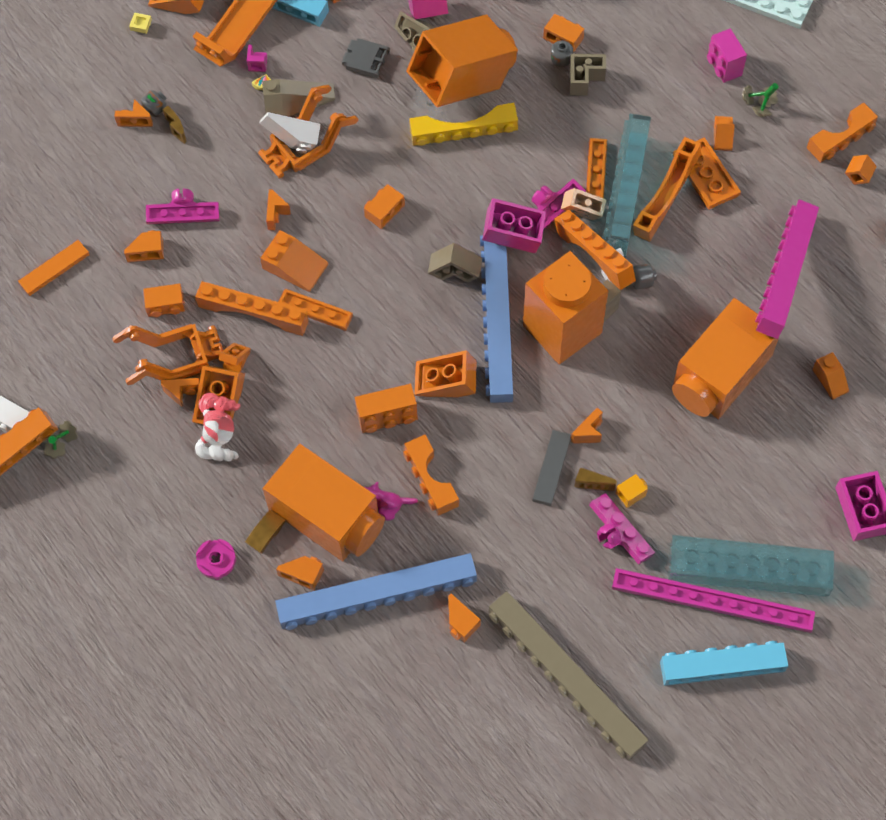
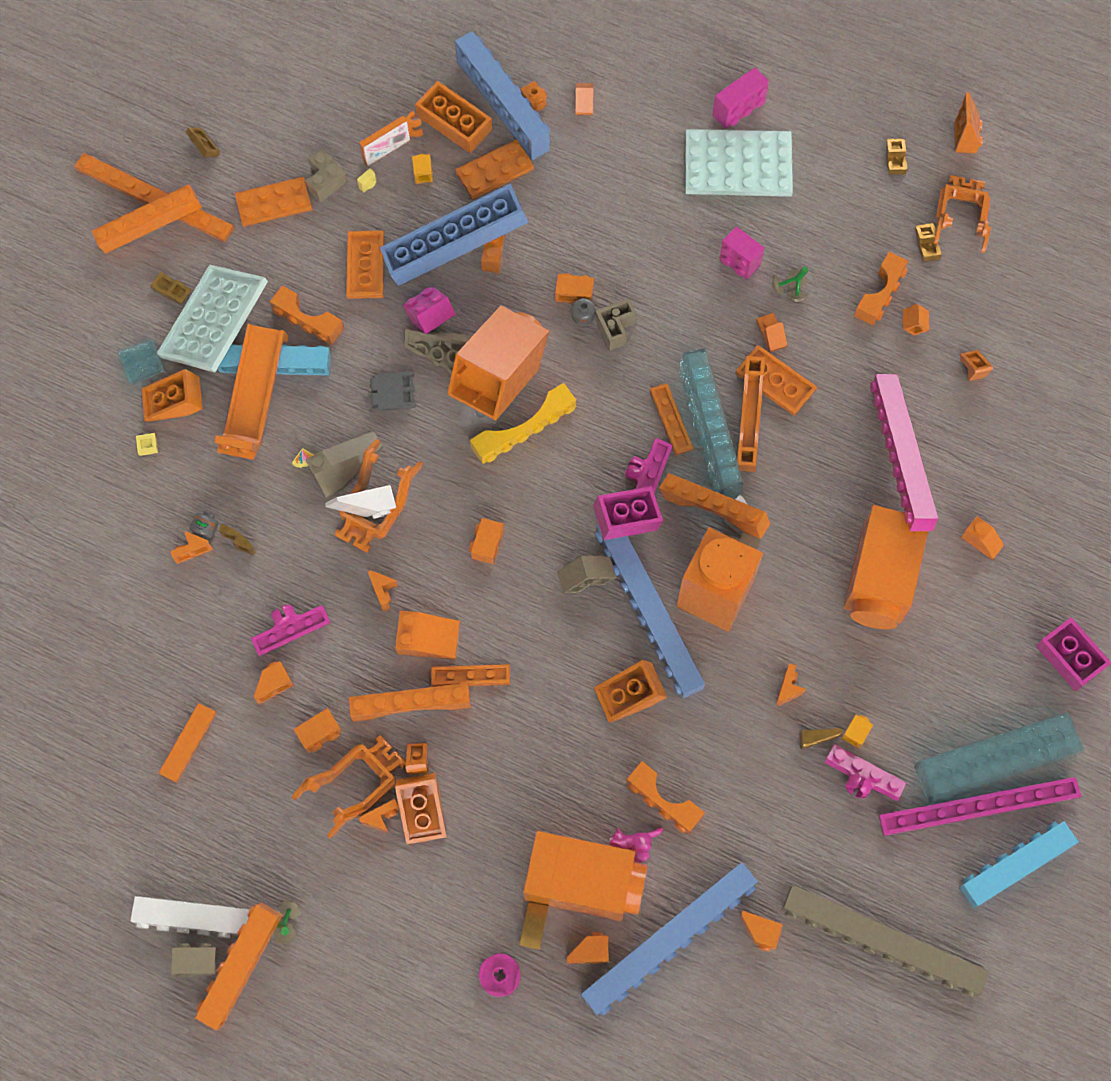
camera: 25 degrees left, 5 degrees up
(217, 428) = (438, 842): hair -> none
(256, 60) = (285, 437): dark pink panel -> none
(386, 408) = (592, 751): orange brick -> none
(551, 468) = (772, 740): dark grey tile -> none
(583, 204) = (679, 461): light nougat brick -> none
(644, 276) = (771, 507): dark grey head -> none

